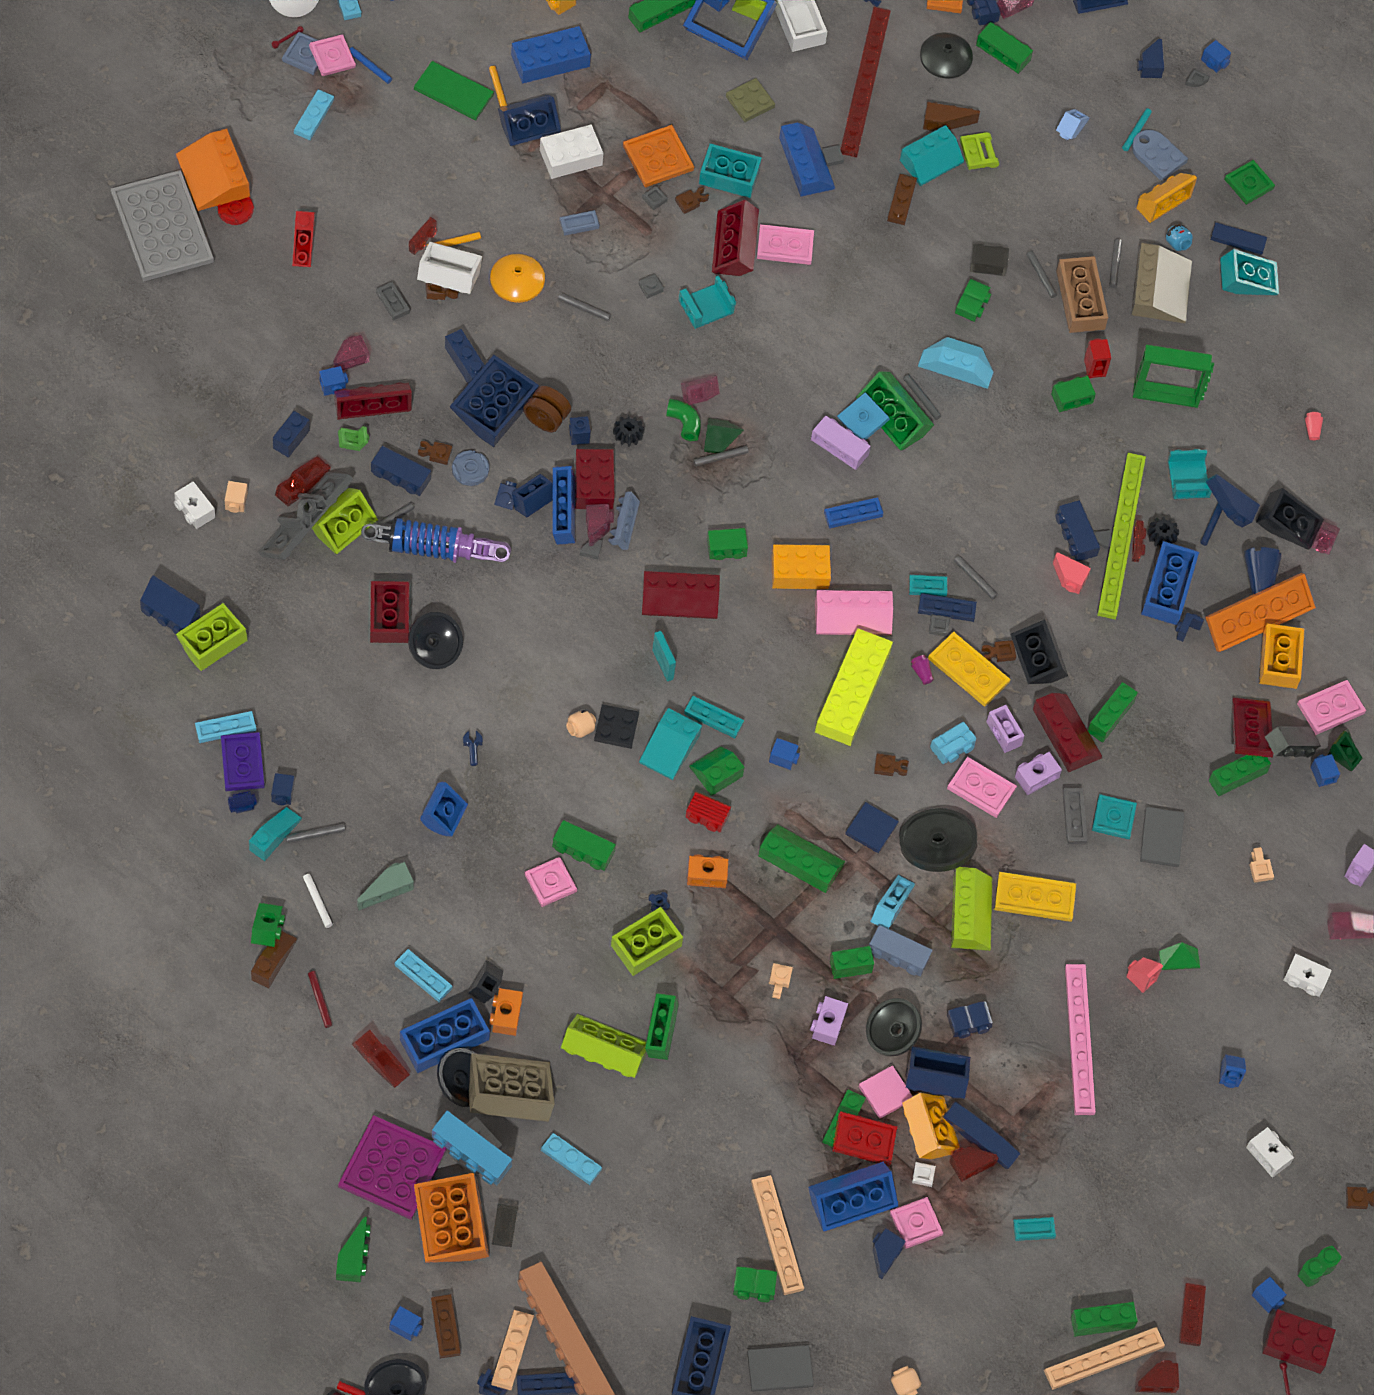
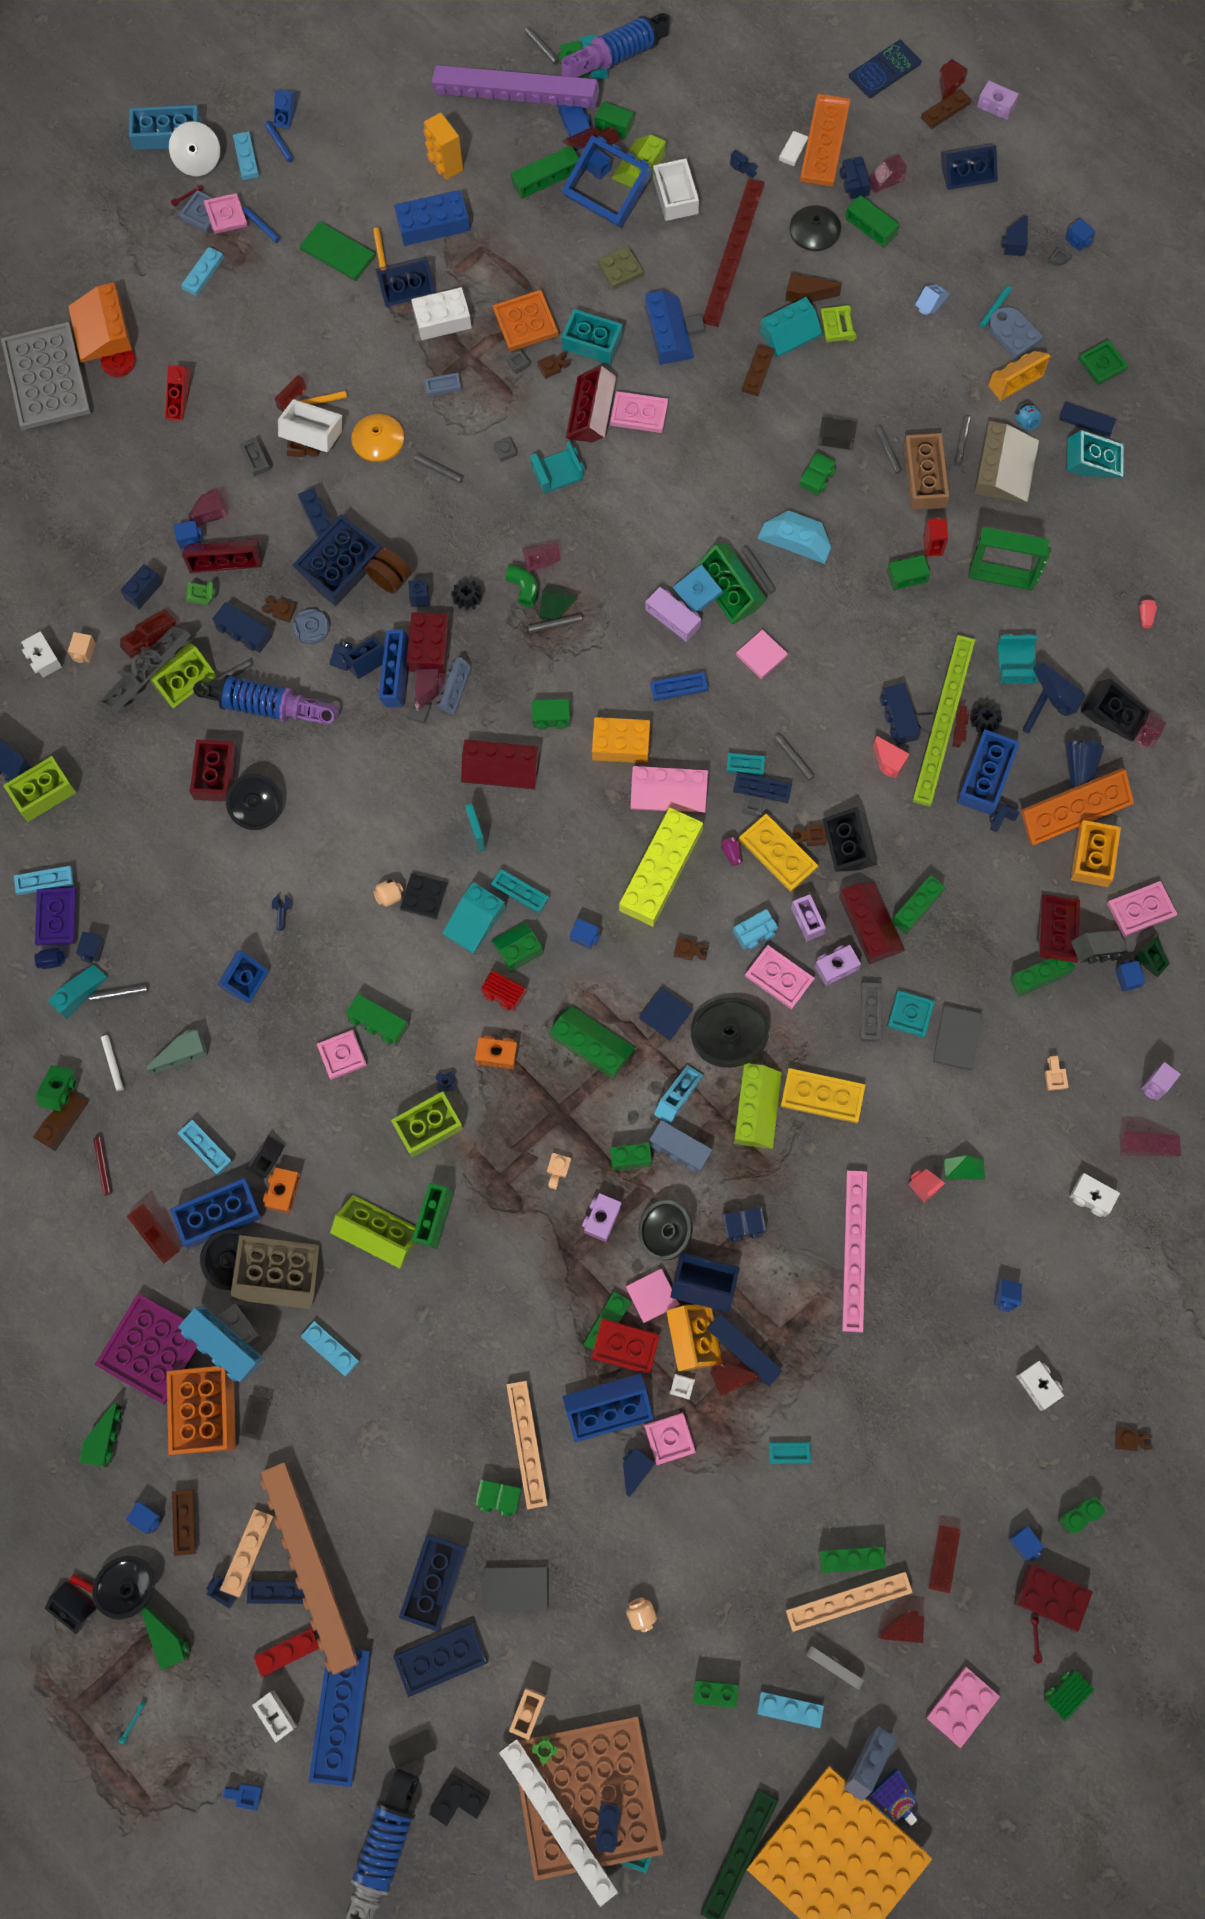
camera: 15 degrees right, 10 degrees up
(933, 479) = (761, 654): none -> bright pink tile

